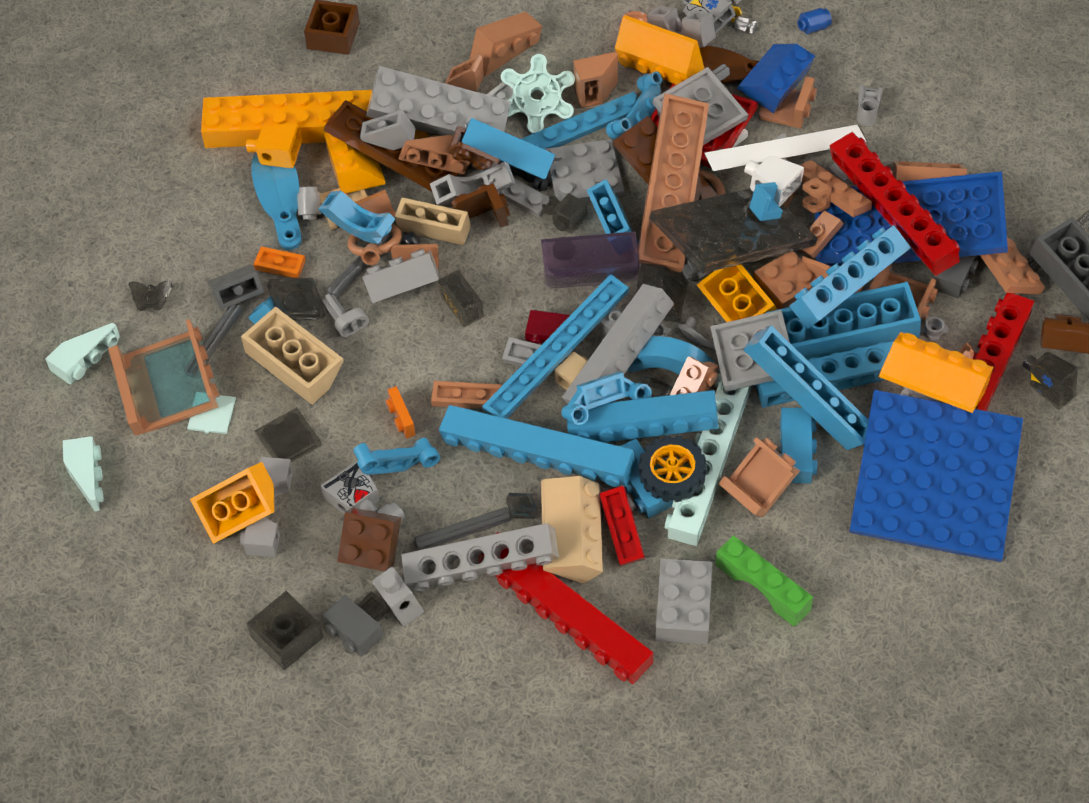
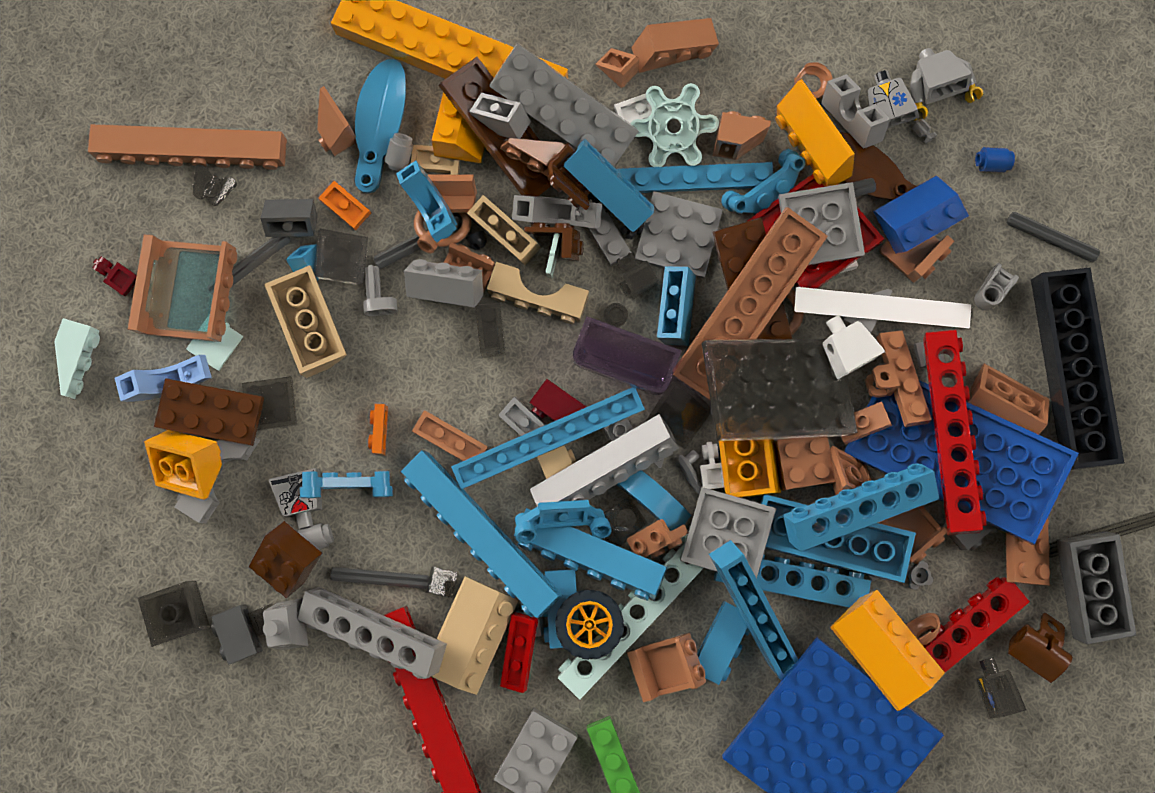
camera: 25 degrees right, 25 degrees up
(76, 355) = (117, 224): light aqua slope -> none
(97, 397) = (118, 278): none -> dark red plate
(112, 273) = (187, 146): none -> nougat brick
(186, 454) = (148, 384): none -> light blue arch
(230, 453) = (209, 412): none -> reddish brown plate
(243, 202) = (333, 126): none -> nougat slope
(277, 145) = (397, 71): light orange torso -> none
(486, 220) = (553, 255): none -> light aqua piece
(512, 256) = (567, 302): none -> tan arch
(704, 312) = (711, 473): none -> white plate
(763, 202) = (823, 377): dark azure panel -> none
(893, 54) = (1053, 237): none -> dark grey axle
(968, 127) = (1077, 367): none -> black brick

